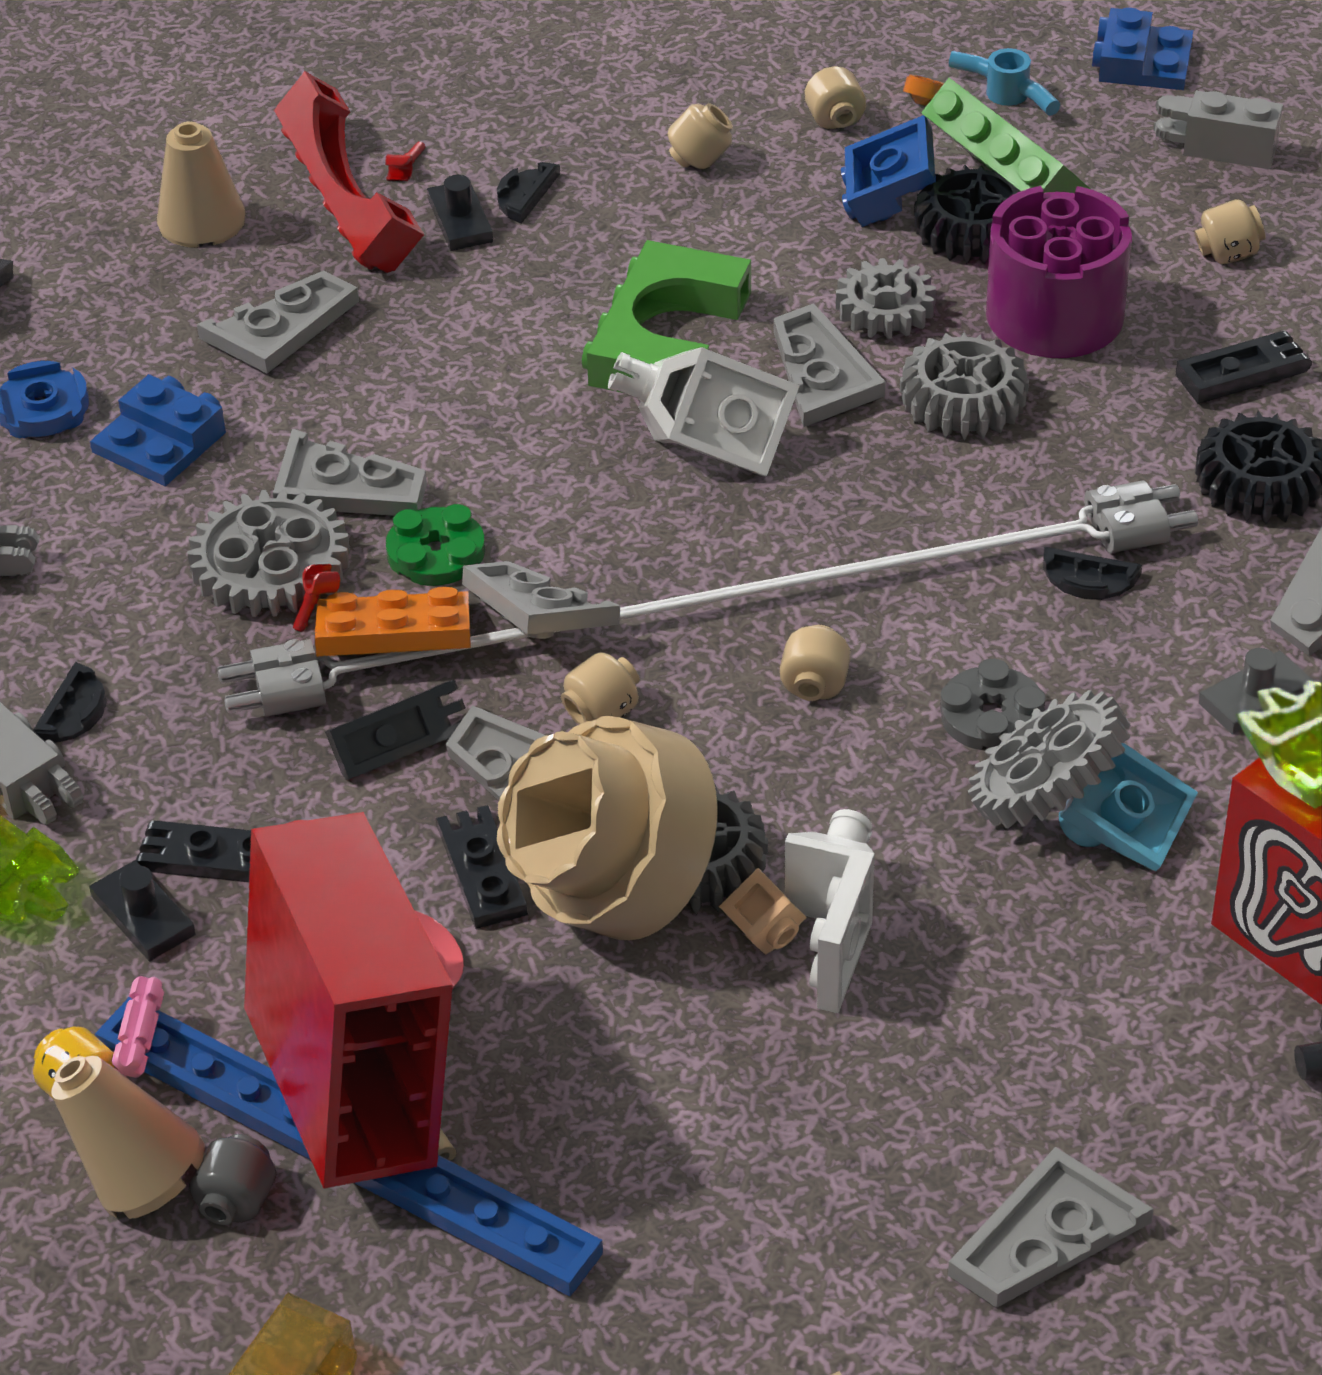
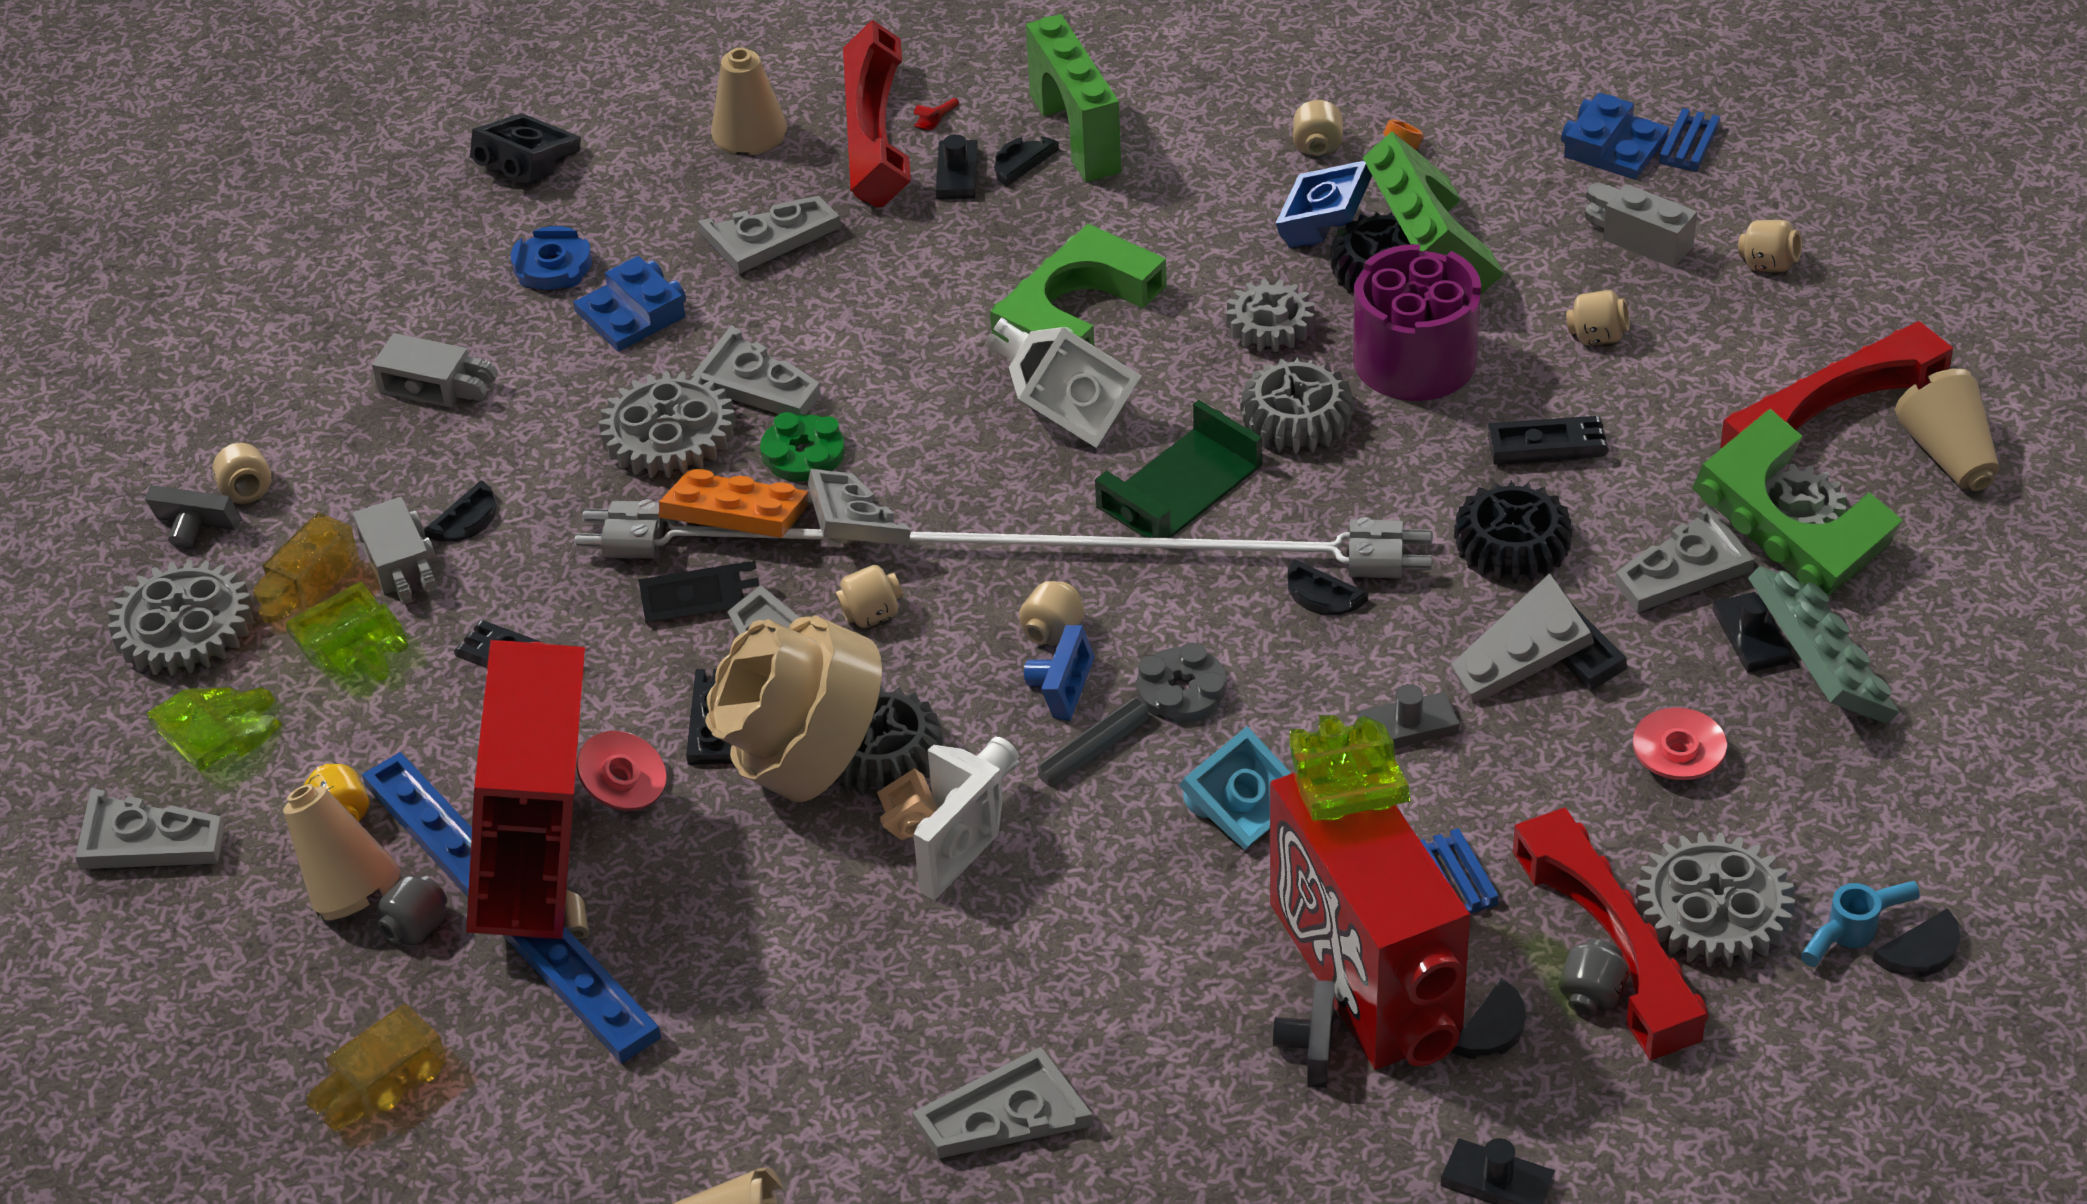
camera: 20 degrees right, 0 degrees up
(138, 1026) = (391, 776): bright pink axle -> none
(142, 910) = (444, 688): black tile -> none
(316, 581) = (687, 455): red hand -> none
(537, 75) = (1068, 80): none -> bright green arch
(700, 136) = (1182, 139): tan head -> none
(825, 366) = (1188, 363): light grey wing -> none
(858, 725) = (1063, 675): none -> blue tile
(878, 484) = (1183, 477): none -> dark green panel
(928, 794) = (1093, 742): none -> dark grey axle
(1007, 78) = (1476, 138): dark azure piece -> none
(1049, 759) = (1188, 735): light grey gear -> none
(1218, 22) = (1675, 134): none -> blue tile

